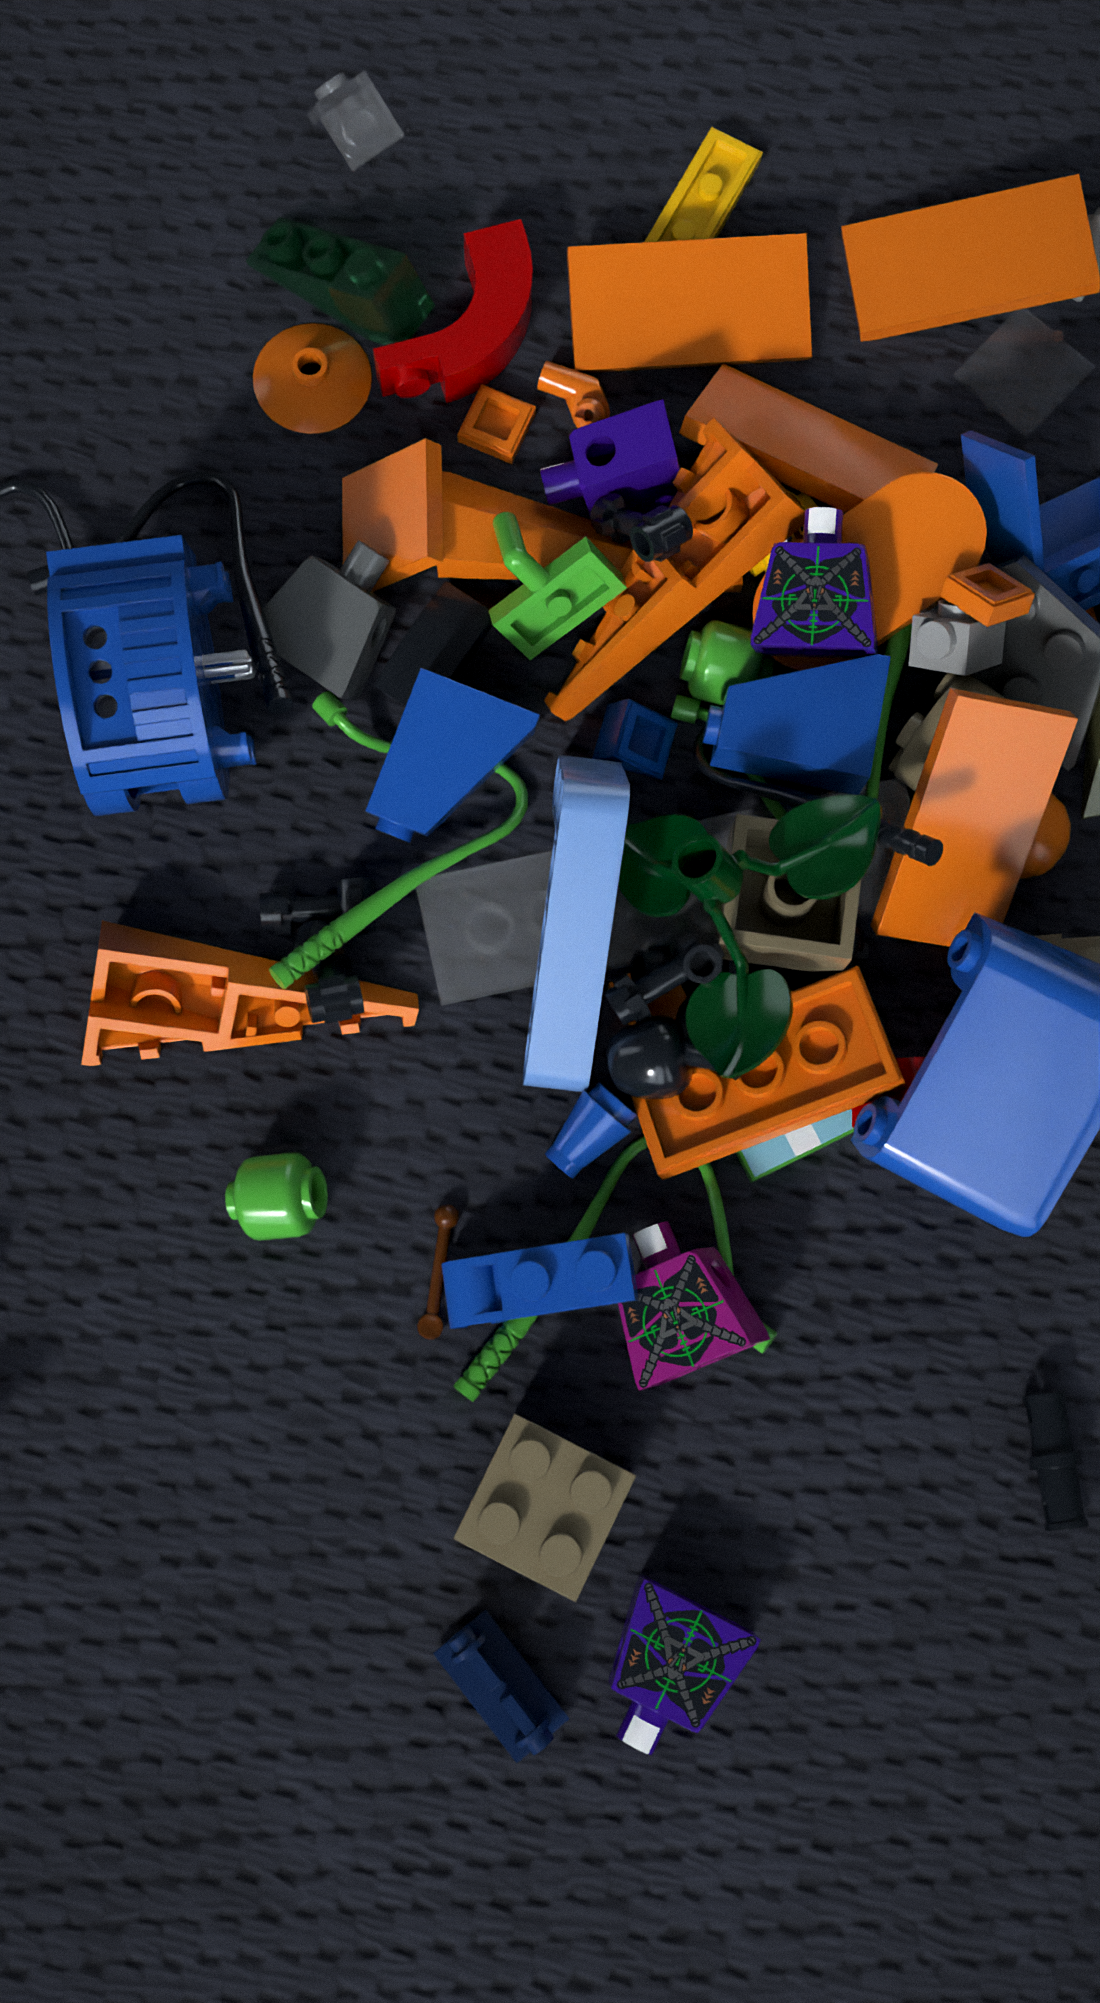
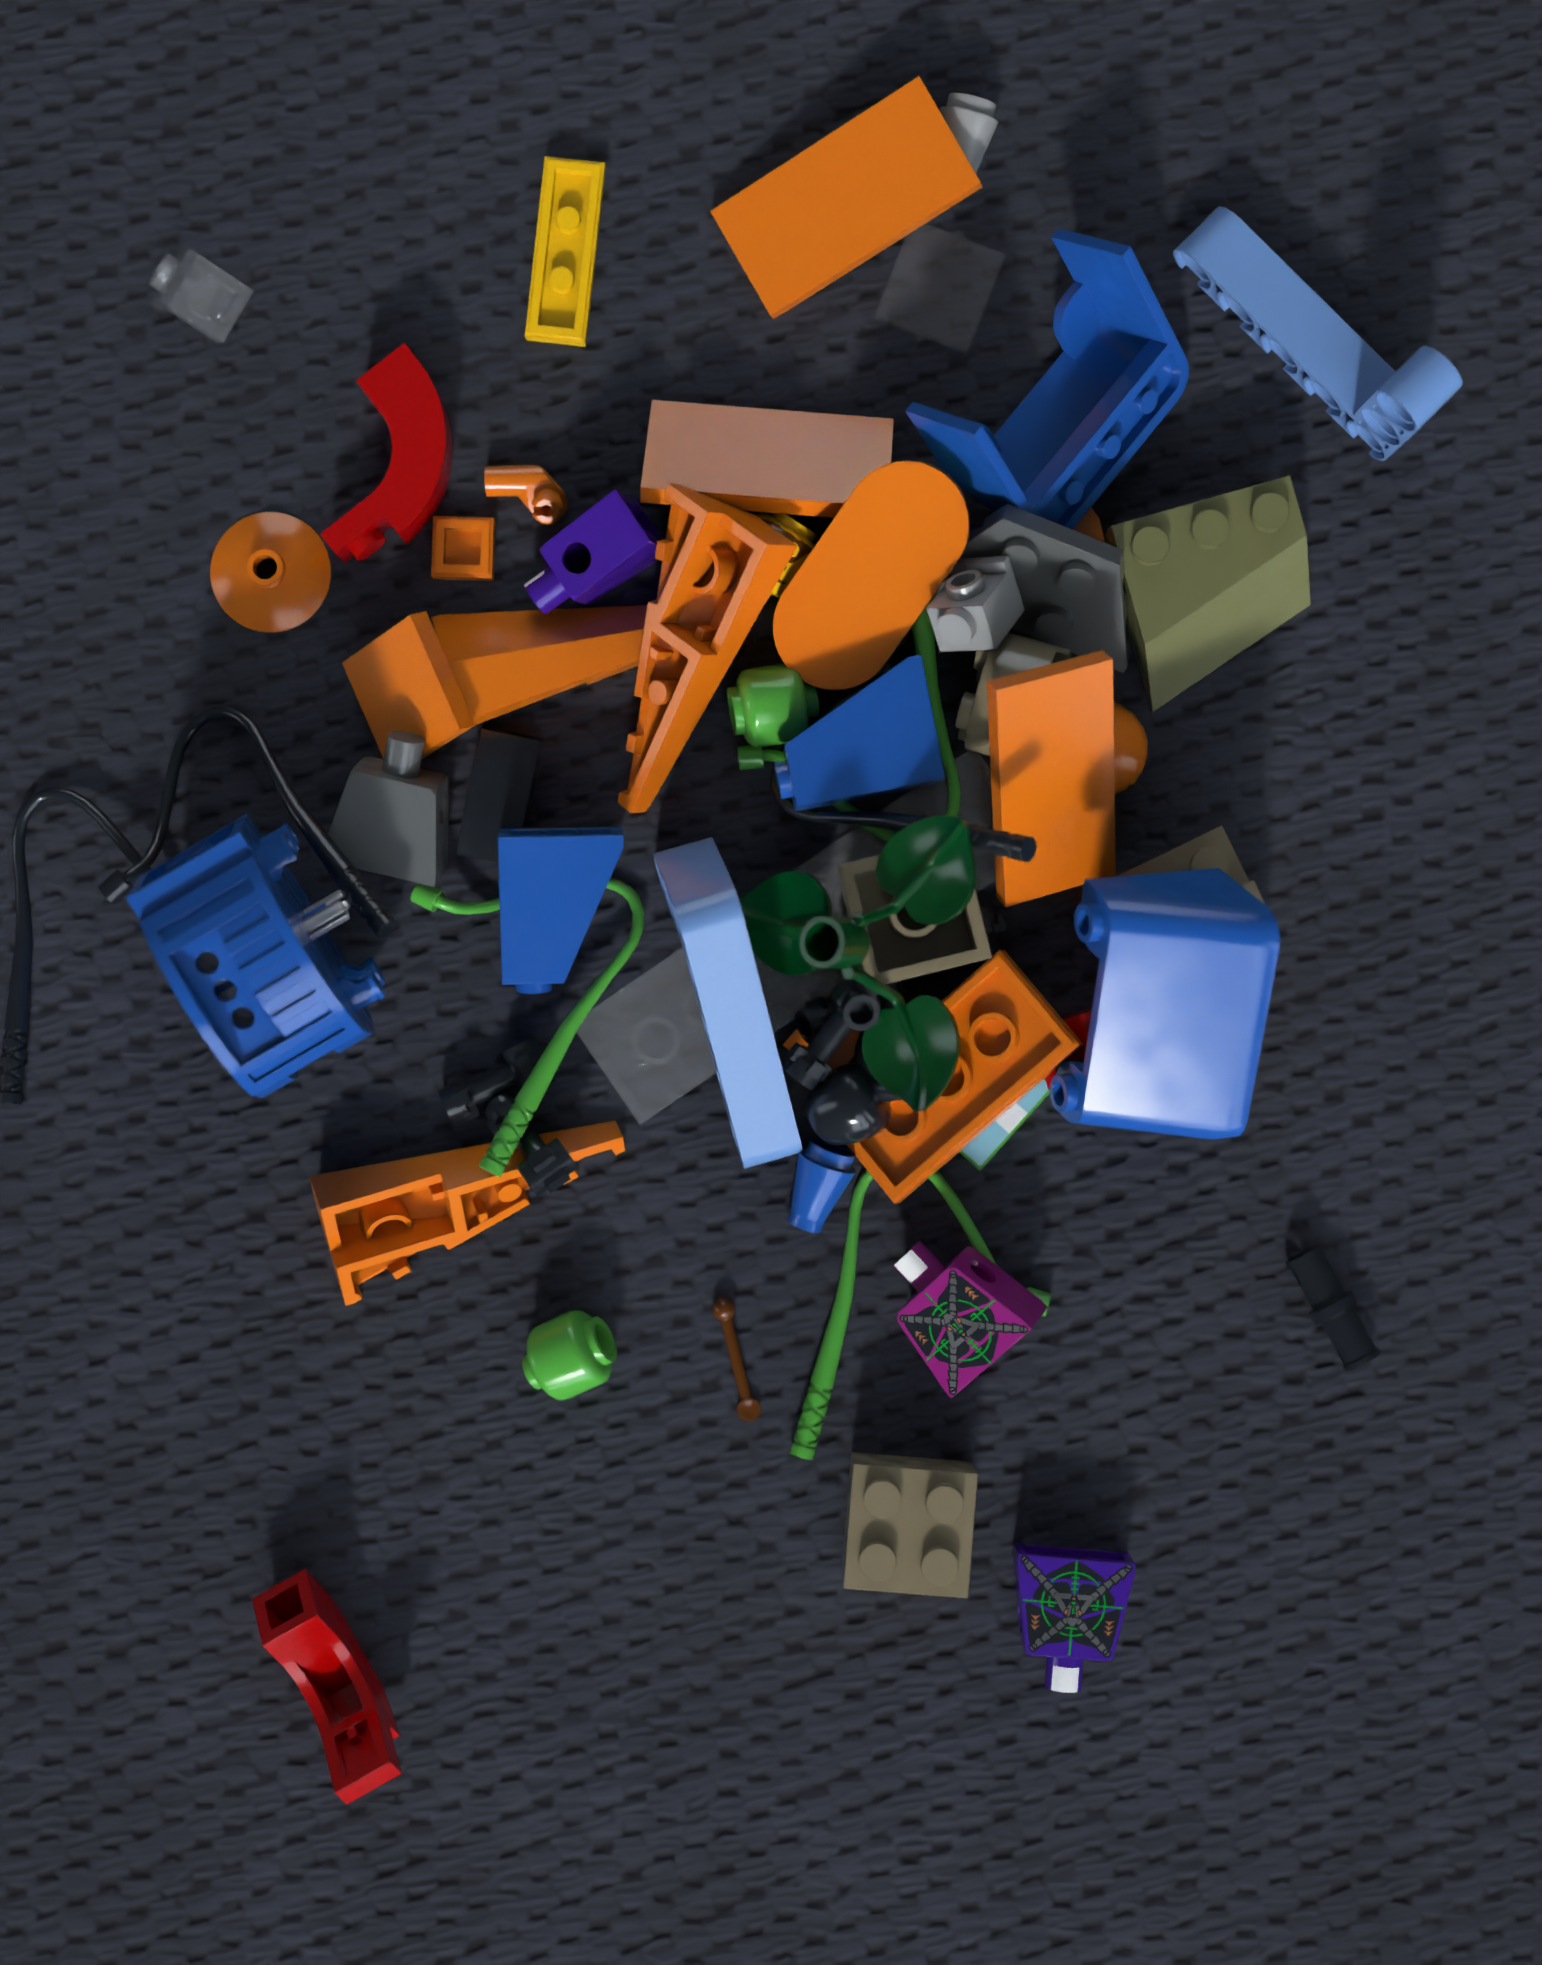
camera: 15 degrees left, 10 degrees up
(346, 278) = (258, 466): clear green slope -> none
(502, 1687) = (933, 1684): dark blue hinge -> none
(539, 1281) = (829, 1339): blue plate -> none
(551, 597) = (587, 713): bright green plate -> none
(635, 738) = (715, 805): blue slope -> none
(652, 534) = (657, 623): black bar -> none
(689, 303) = (597, 355): orange tile -> none
(817, 595) = (833, 622): torso -> none
(987, 594) = (987, 564): orange tile -> none

